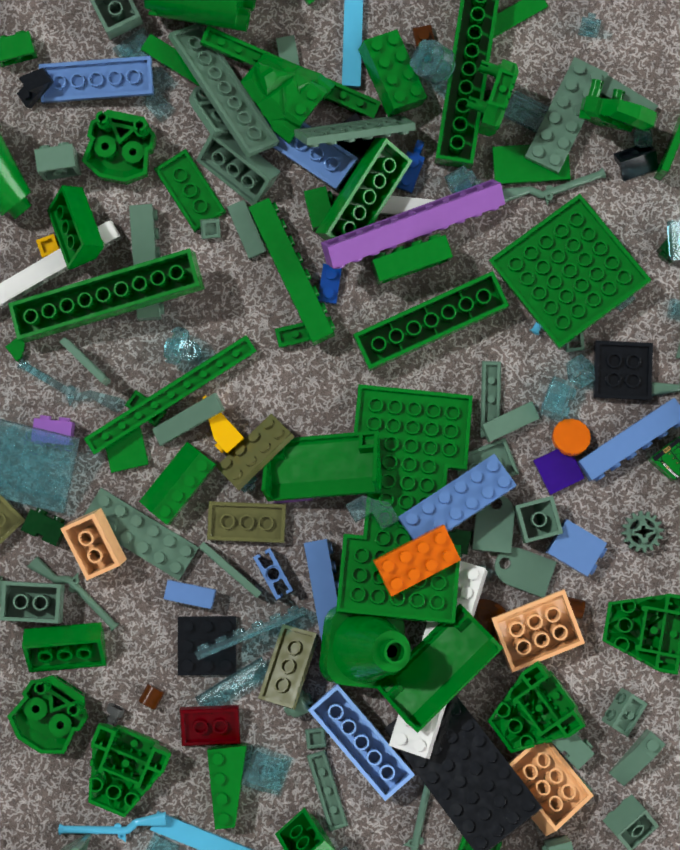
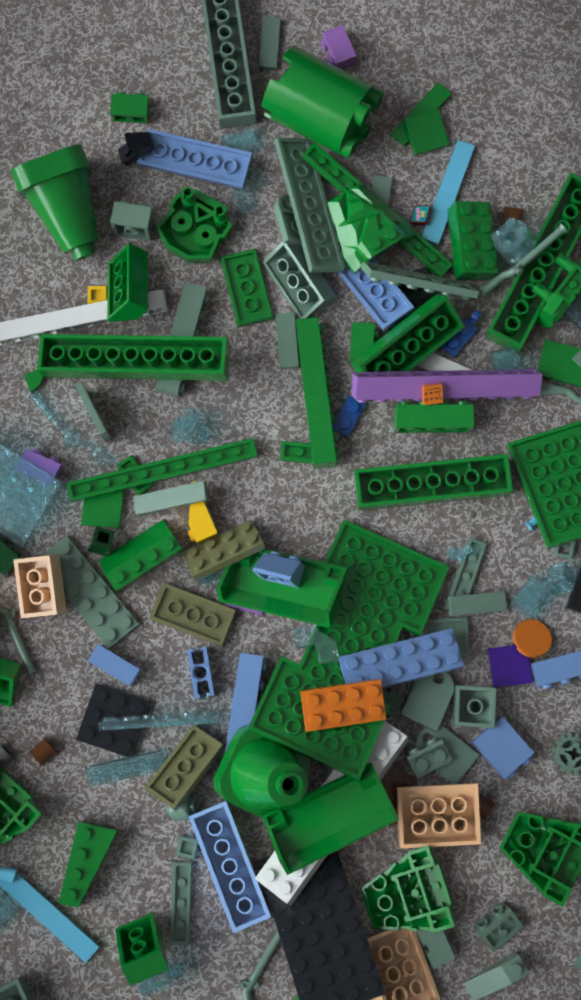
camera: 20 degrees right, 5 degrees down
(136, 482) = (101, 541): none -> dark green brick
(168, 57) = (268, 160): green tile -> none
(210, 228) = (253, 328): sand green tile -> none
(210, 725) = (89, 799): dark red tile -> none
(230, 569) = (161, 655): sand green tile -> none
(266, 770) = (128, 862): clear light blue slope -> none
(315, 453) = (280, 569): none -> medium blue slope
(334, 63) = (421, 215): none -> tile
(403, 237) = (432, 393): none -> orange tile
(445, 87) = (518, 268): none -> sand green piece
(477, 381) = (460, 554): none -> clear light blue arm
(511, 580) = (428, 758): none -> sand green bracket

